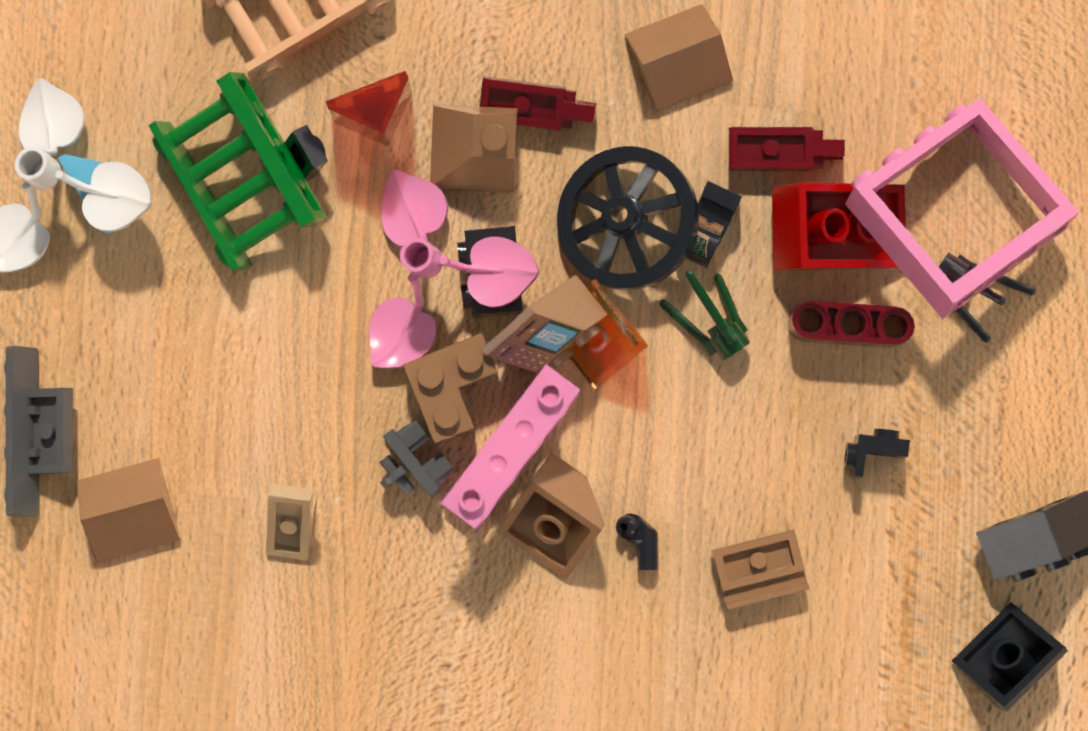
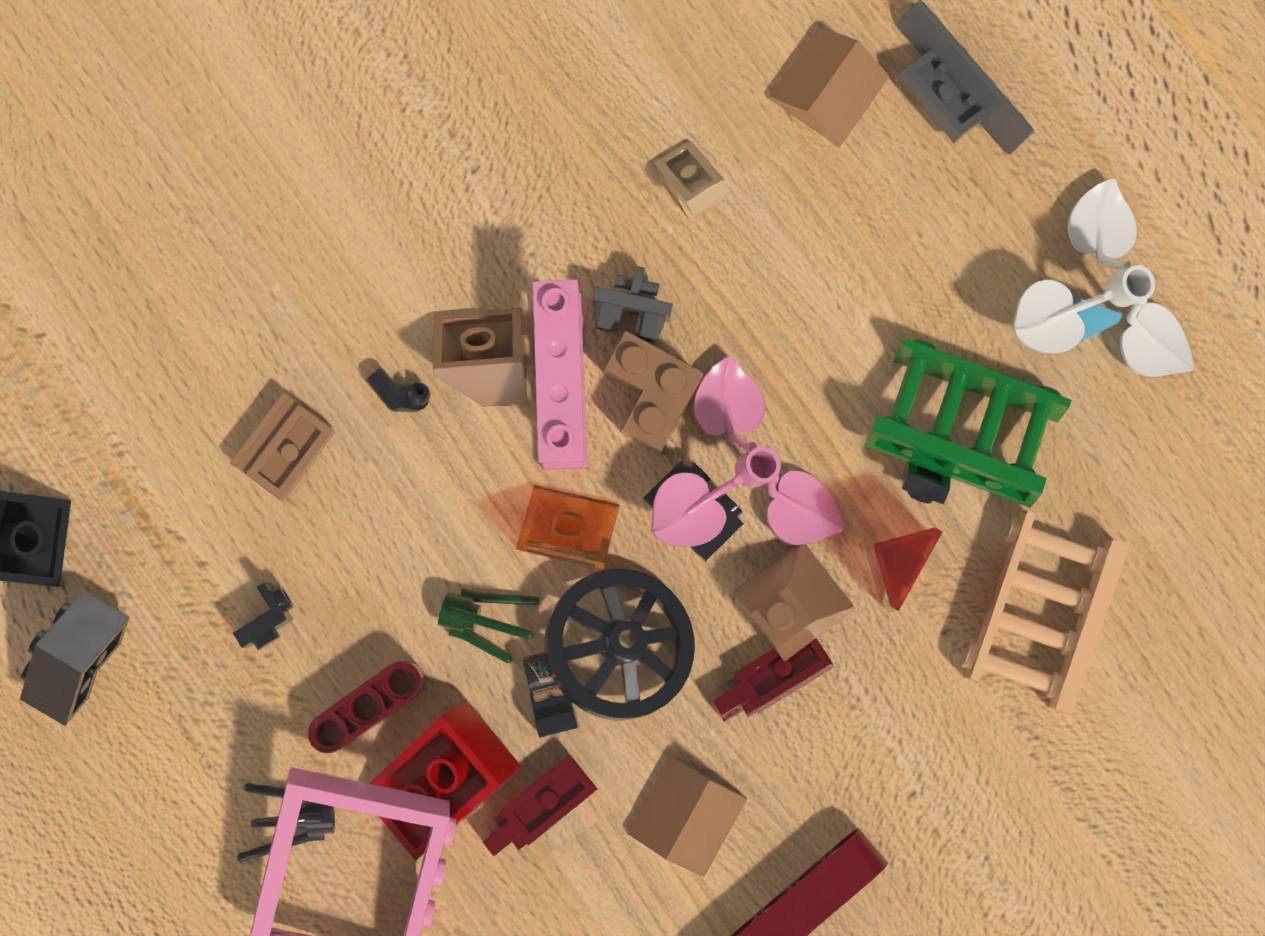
camera: 155 degrees right, 0 degrees up
(549, 328) = (607, 499): medium nougat slope -> none

